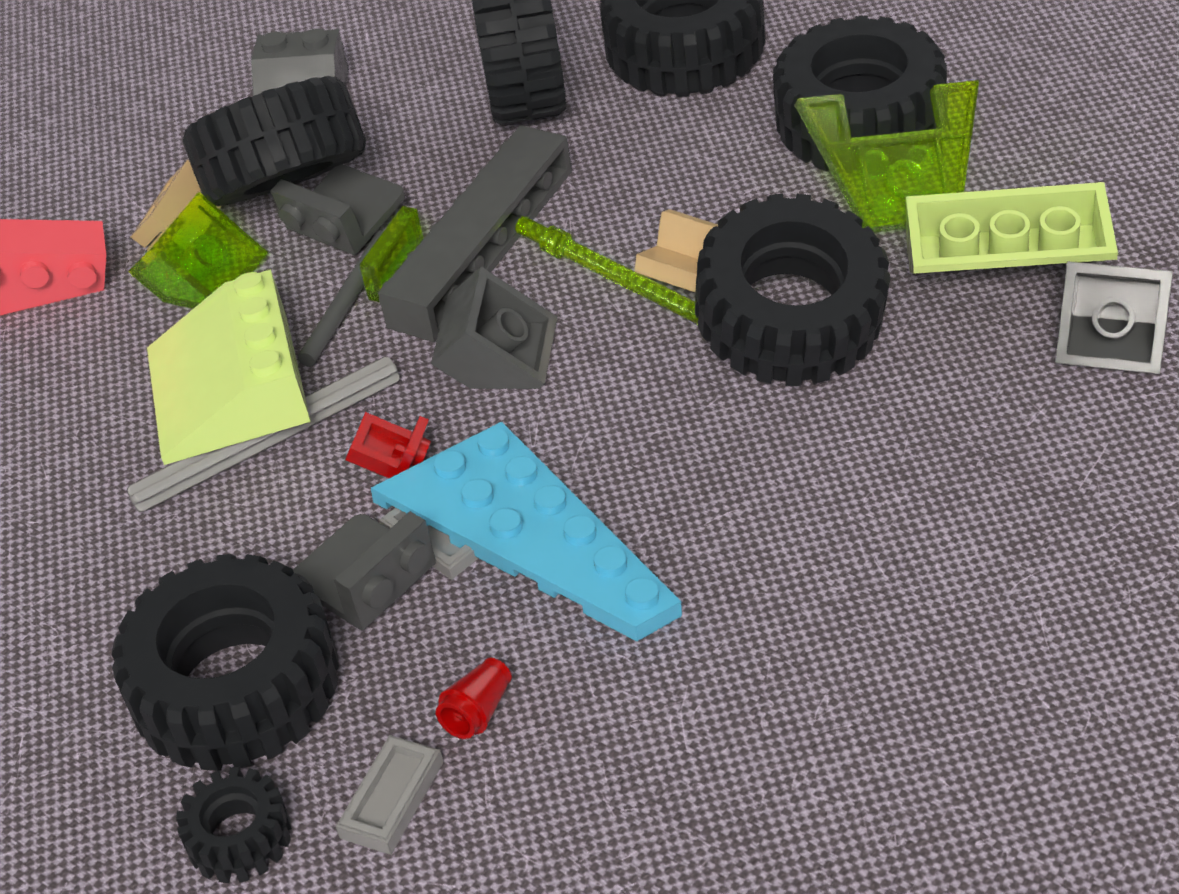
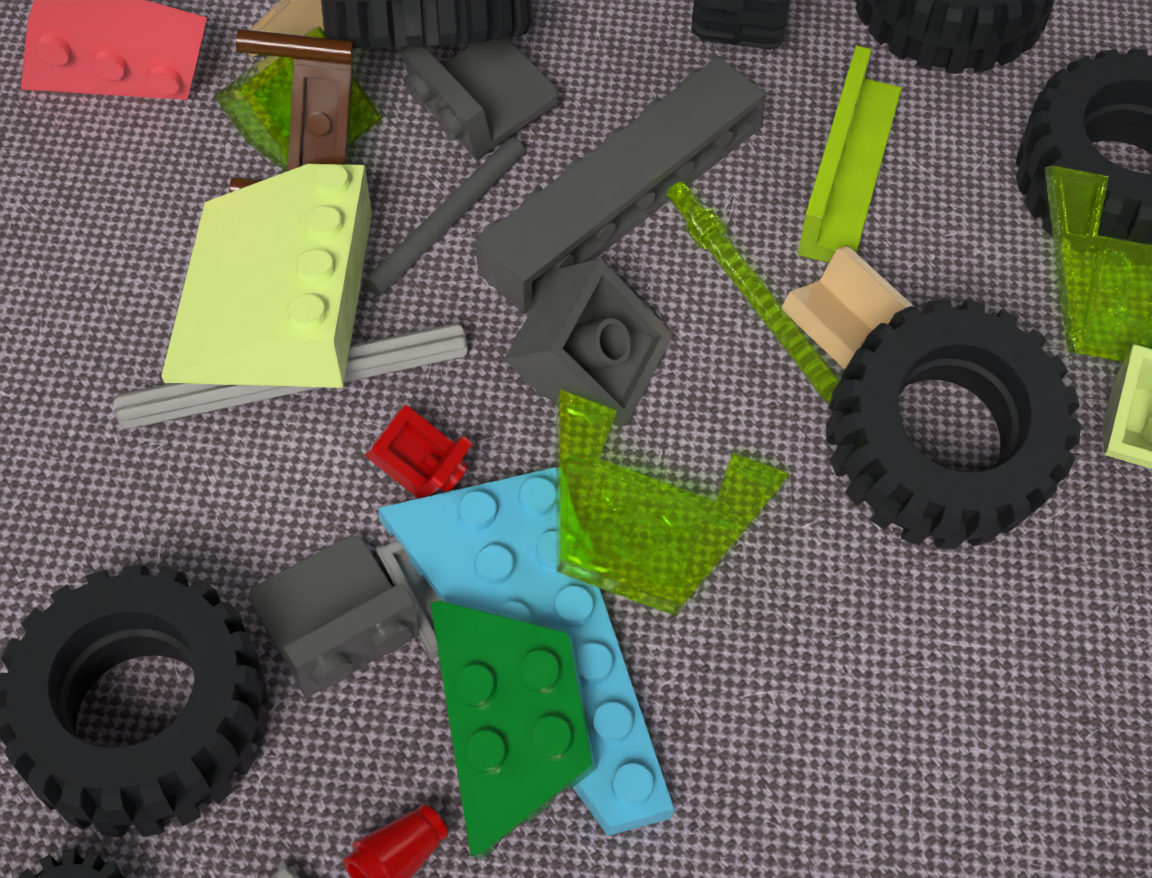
camera: 10 degrees right, 15 degrees up
(215, 230) = (318, 95): none -> reddish brown plate
(391, 250) = (515, 178): clear neon green tile -> none
(530, 578) = (511, 718): none -> green wing
(582, 437) = (639, 531): none -> clear neon green wing
(649, 165) = (849, 163): none -> lime fence

